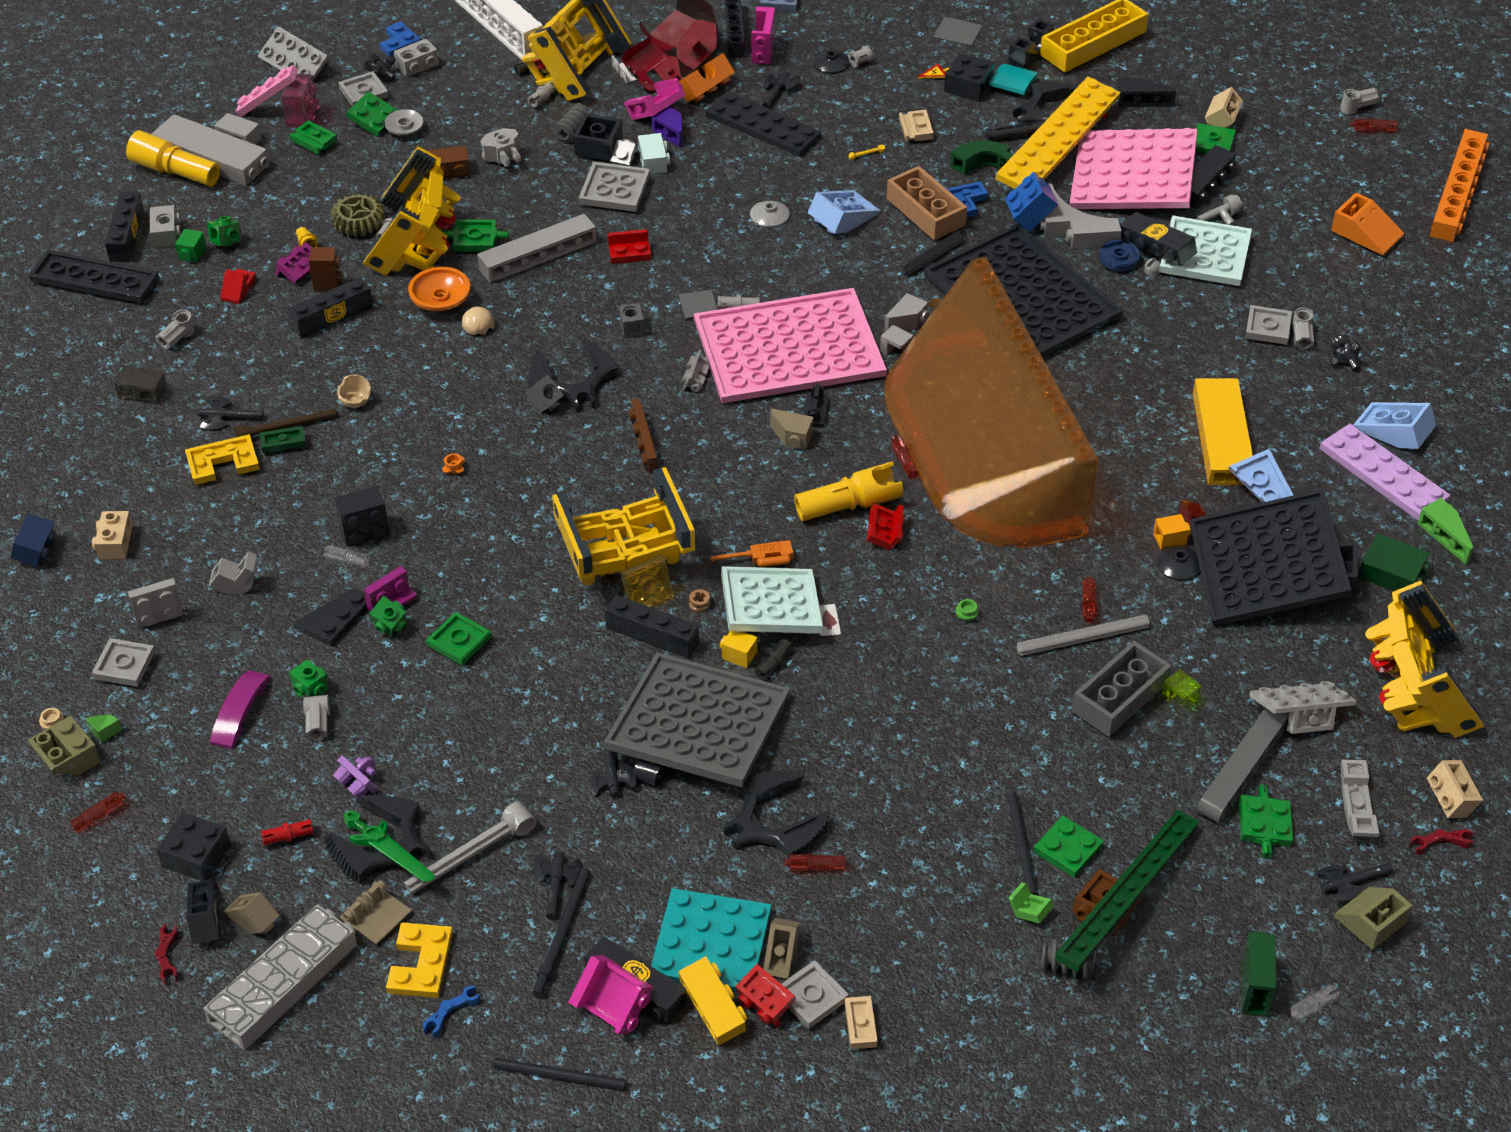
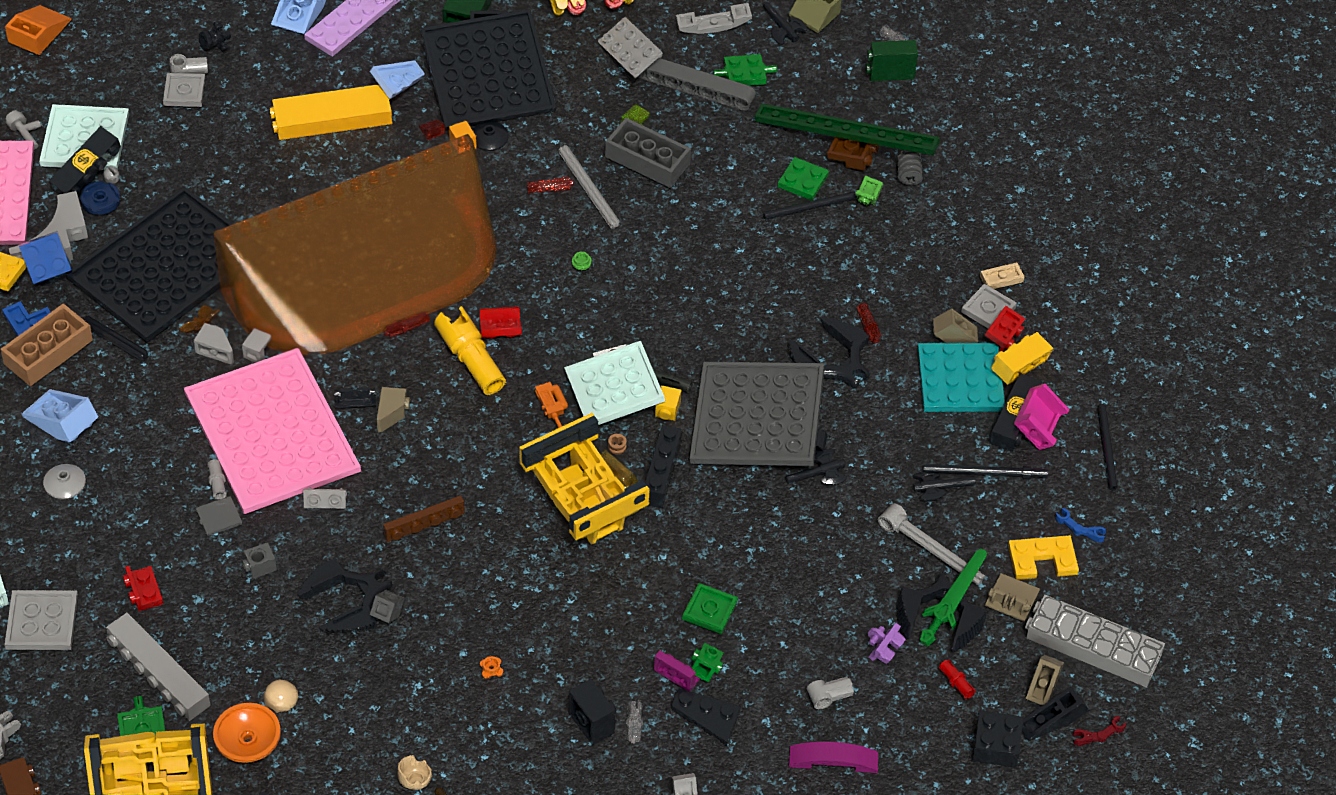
camera: 105 degrees left, 5 degrees up
(308, 680) = (797, 704): green brick -> none

